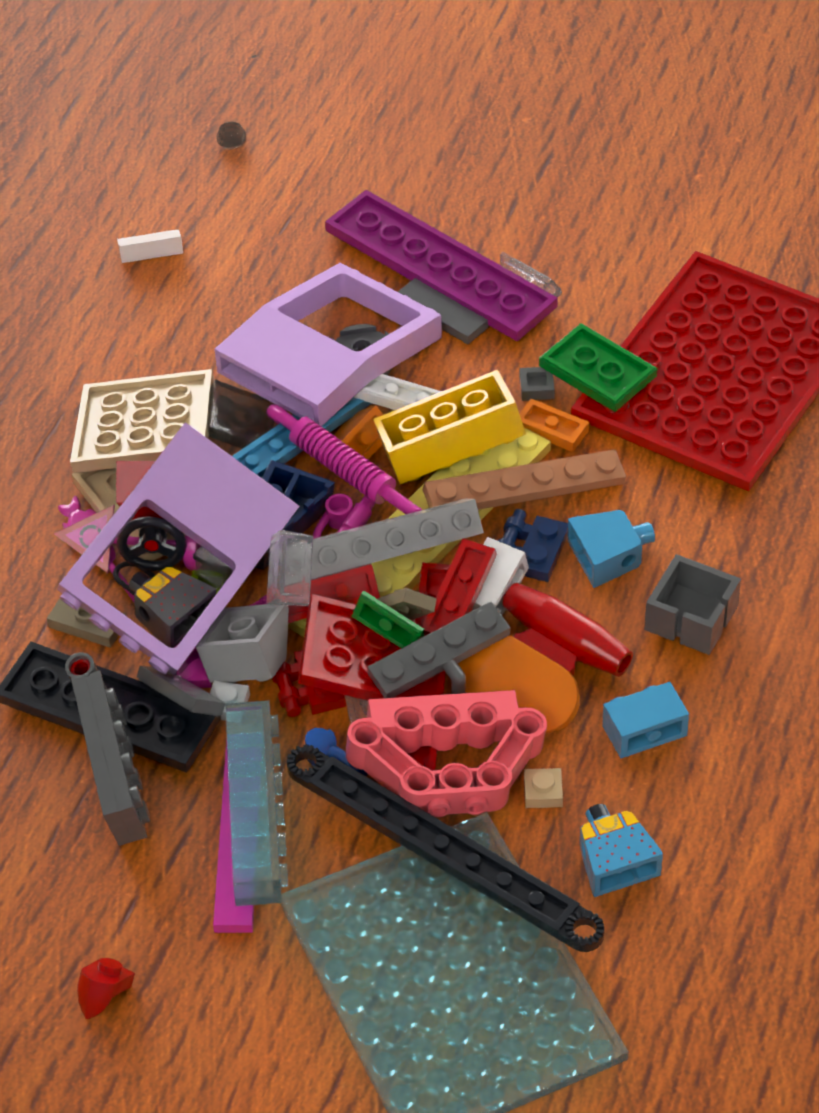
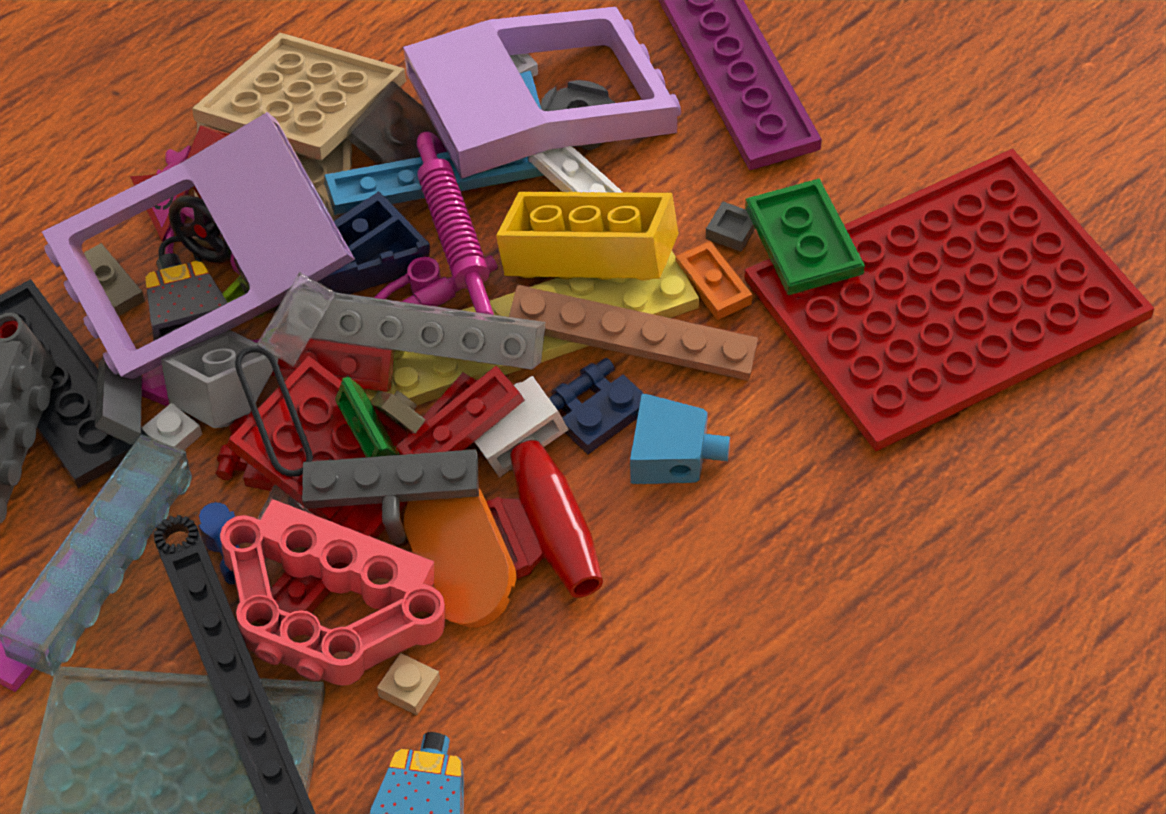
camera: 30 degrees right, 5 degrees up
(312, 651) = (253, 349): none -> black piece
(361, 432) = (491, 207): orange panel -> none
(454, 317) = (698, 108): dark grey tile -> none
(530, 274) = (813, 104): clear slope -> none
(645, 719) = (564, 660): dark azure brick -> none
(692, 604) = (706, 553): dark grey piece -> none

